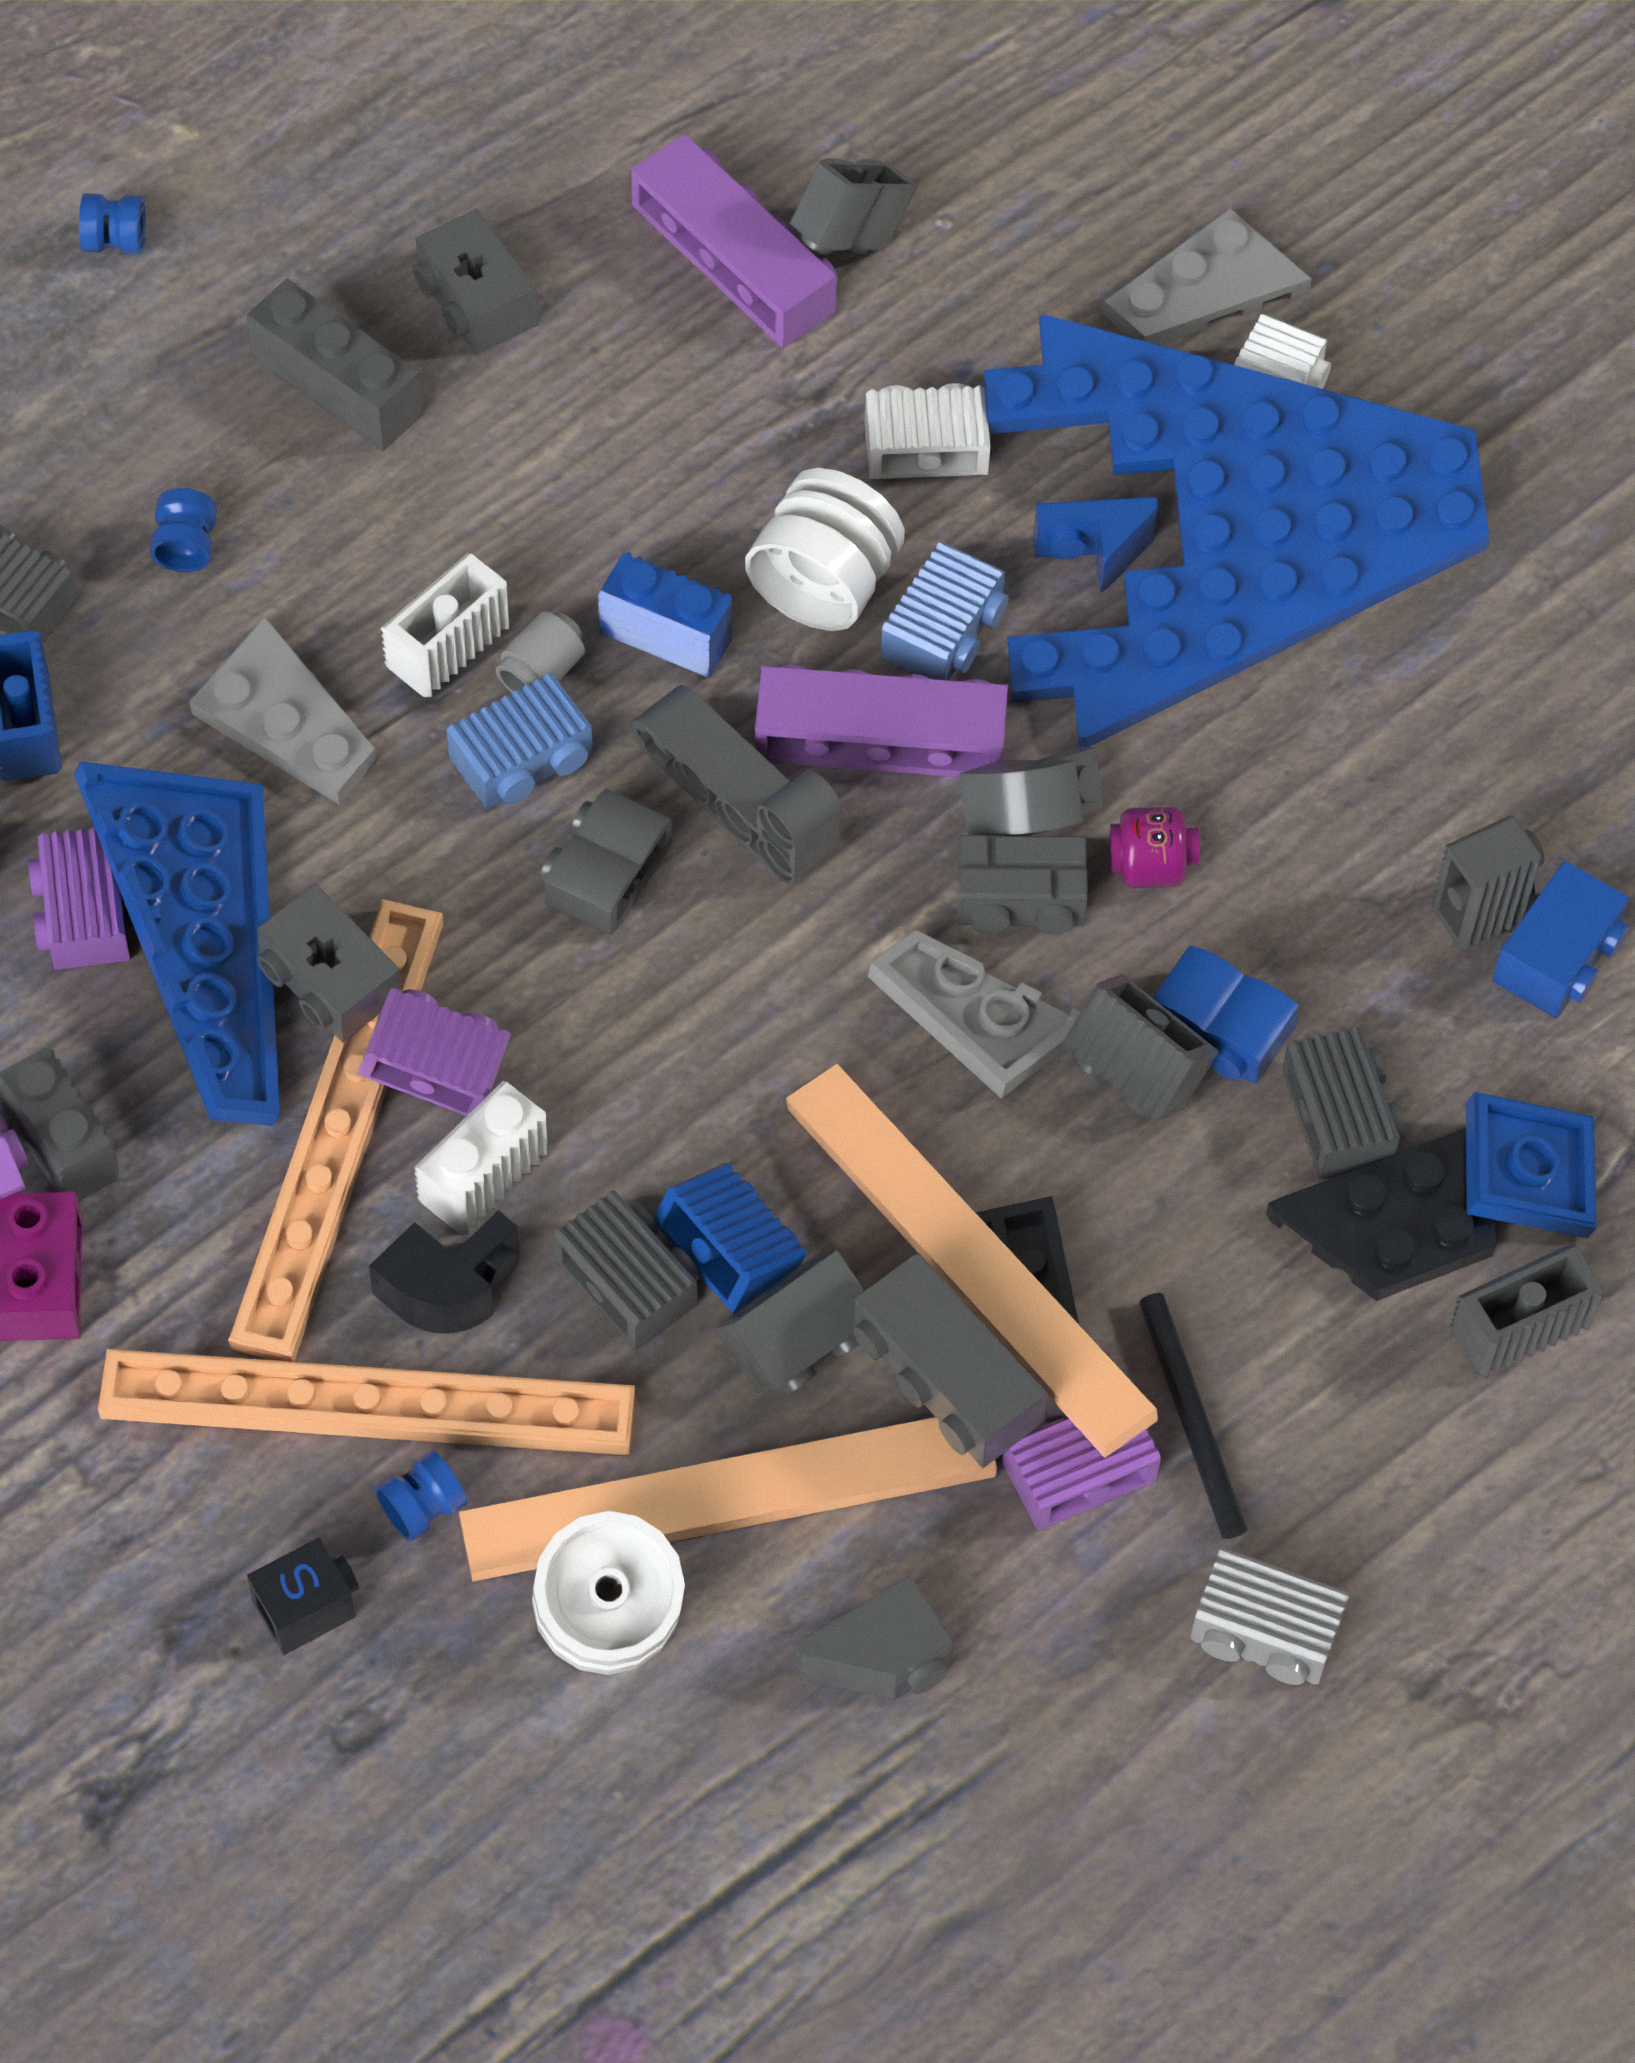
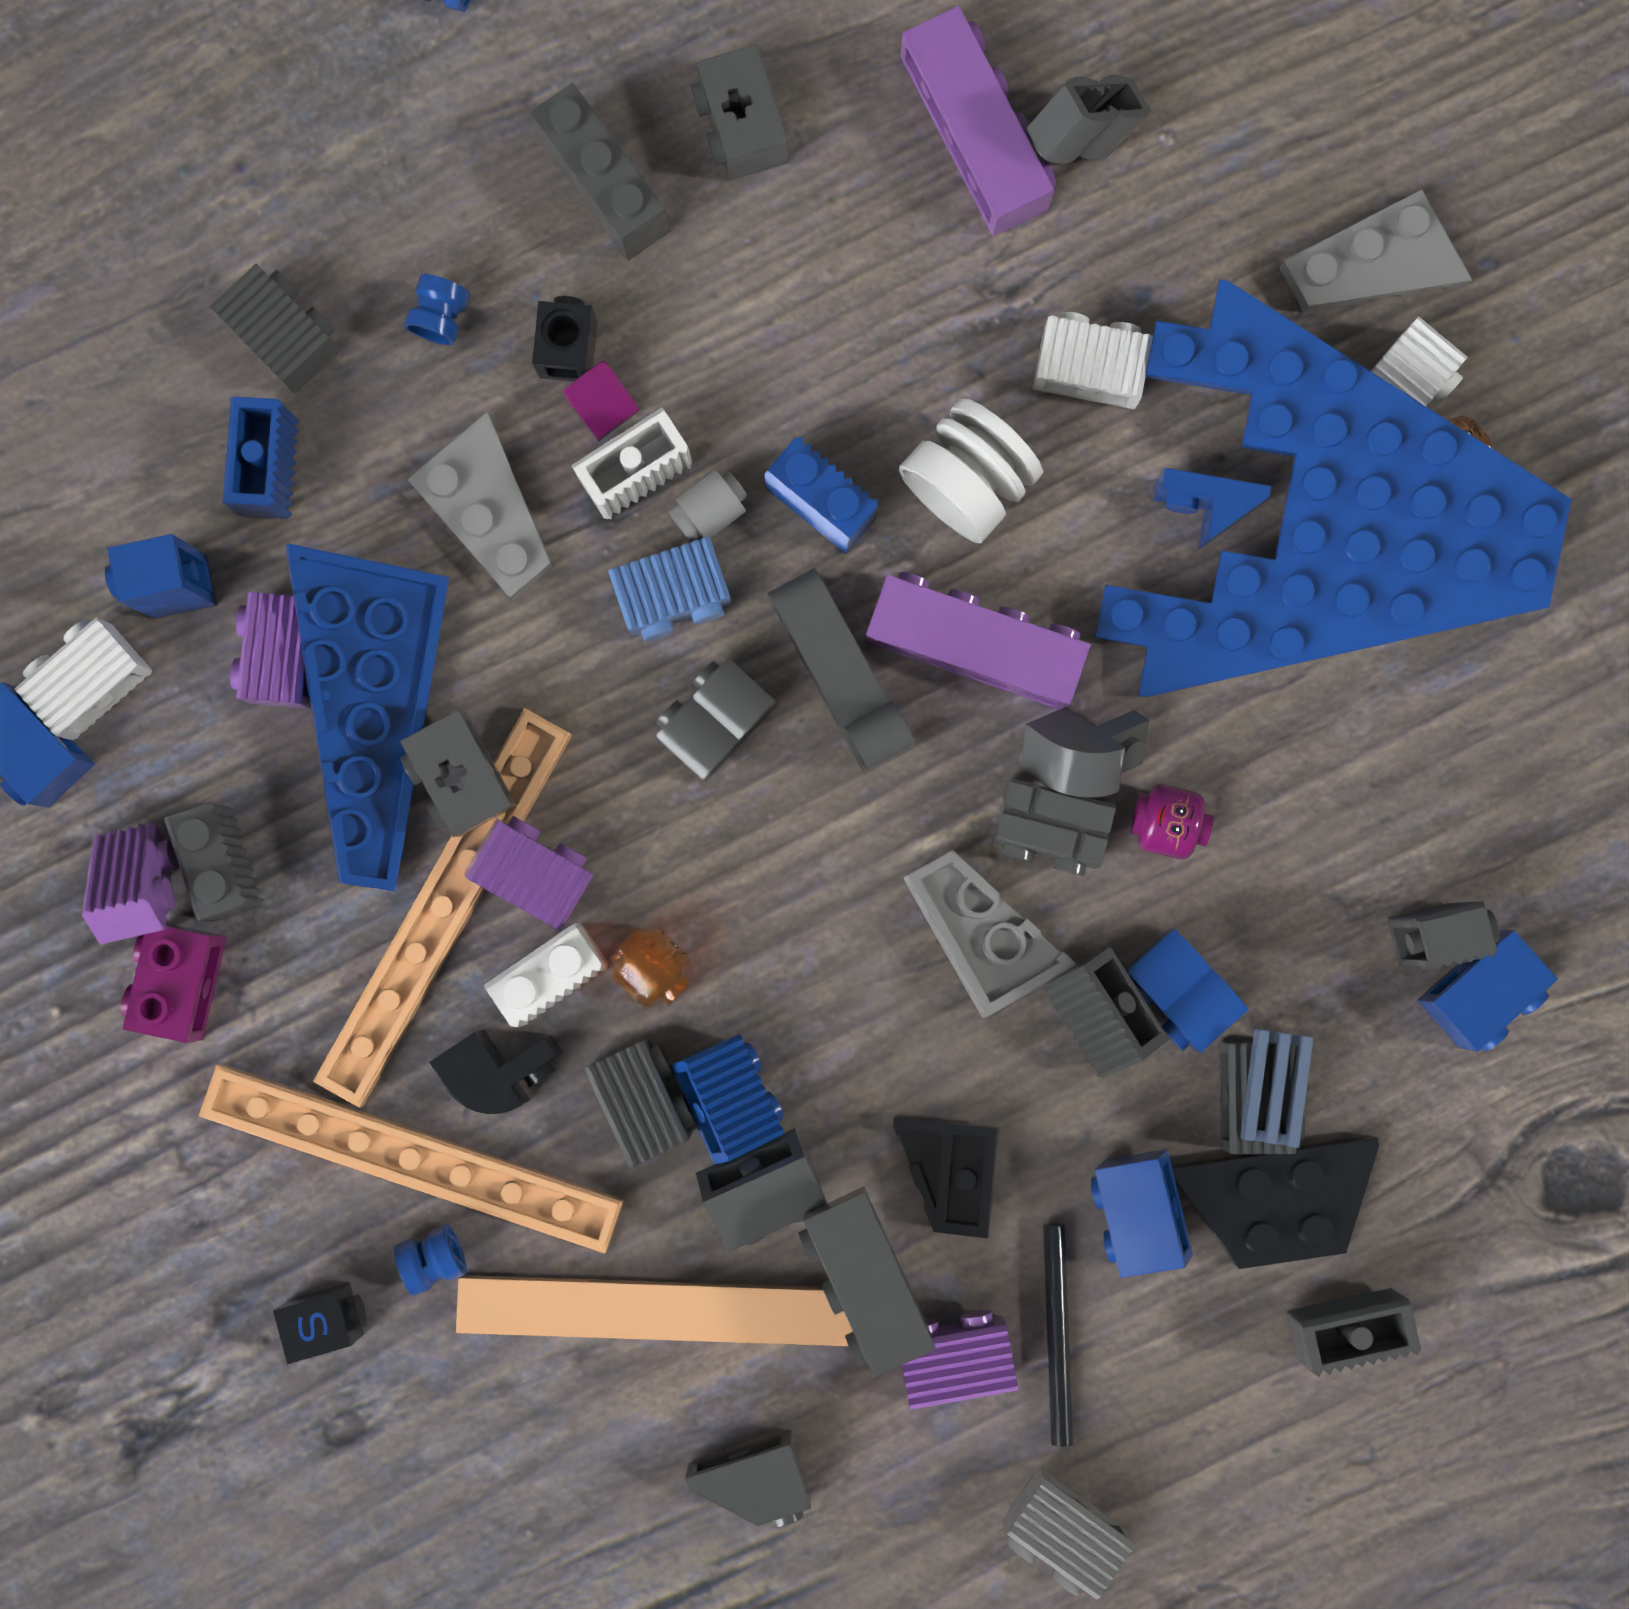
camera: 20 degrees right, 25 degrees up
(339, 550) = (568, 361): none -> black brick
(386, 579) = (600, 400): none -> magenta slope
(601, 1127) = (650, 967): none -> clear orange head
(644, 1573) = (550, 1397): white wheel -> none
(943, 614) = (1058, 548): medium blue brick -> none
(972, 1261) = (915, 1174): light nougat tile -> none
(1247, 1246) = (1142, 1213): none -> blue brick
(1346, 1021) = (1298, 1088): none -> sand blue tile
(1530, 1165) = (1396, 1191): blue tile -> none

